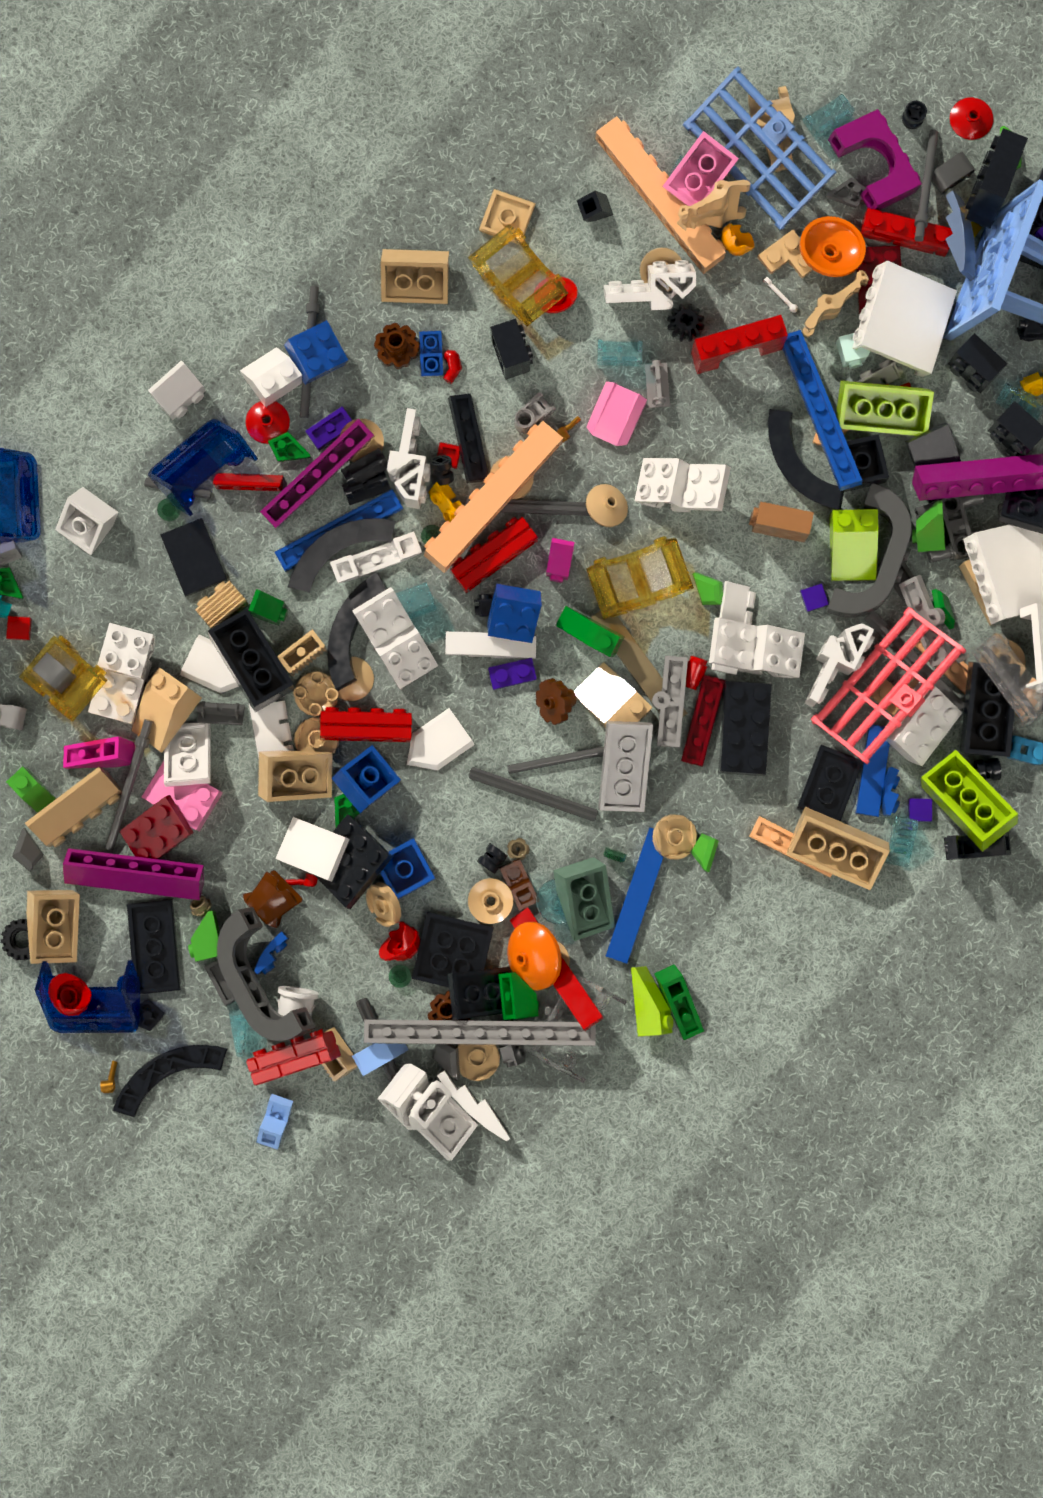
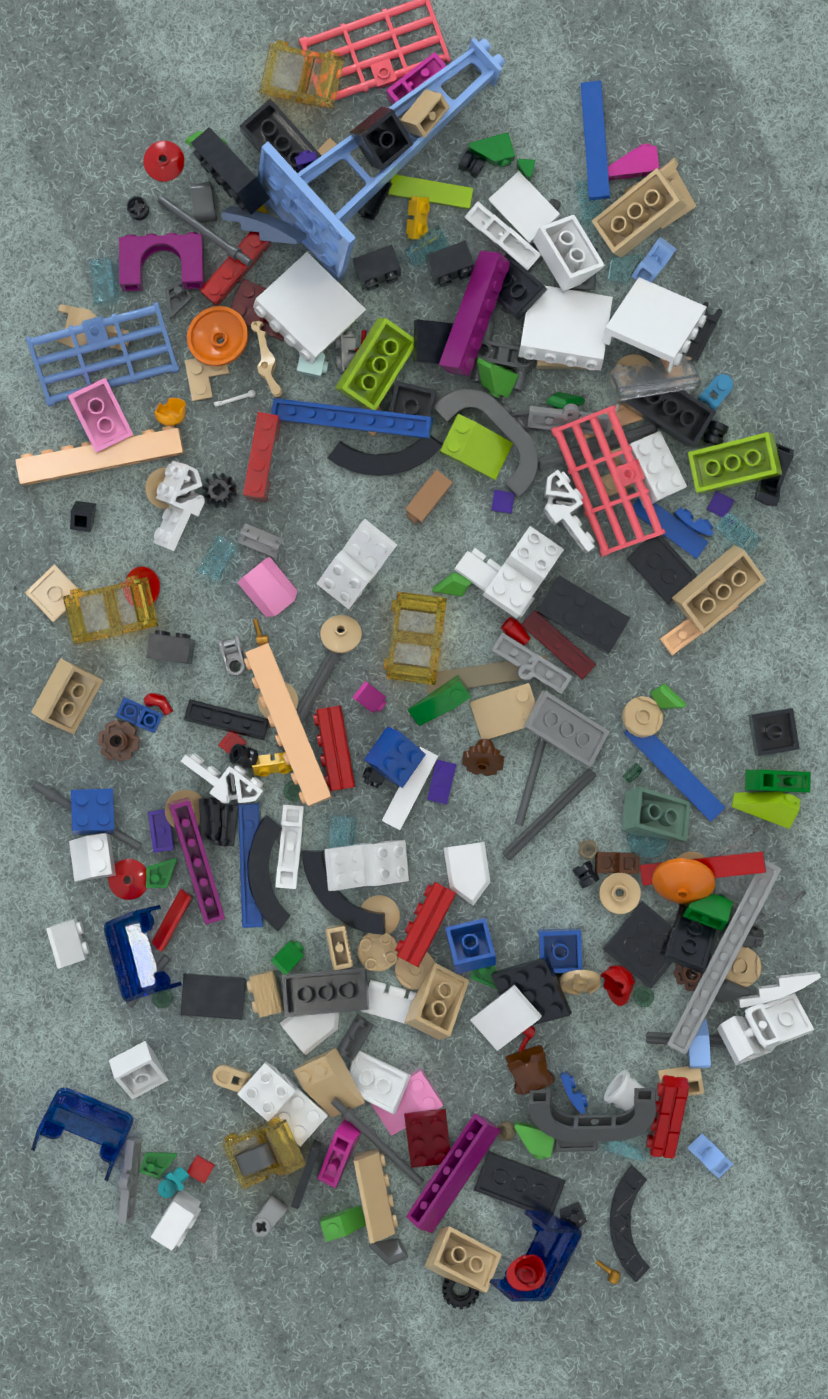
camera: 60 degrees left, 5 degrees up
(63, 730) = (305, 1176): none -> black tile
(122, 605) = (224, 1075): none -> tan plate
(717, 207) = (136, 415): tan animal -> none
(726, 972) = (773, 731): none -> black brick

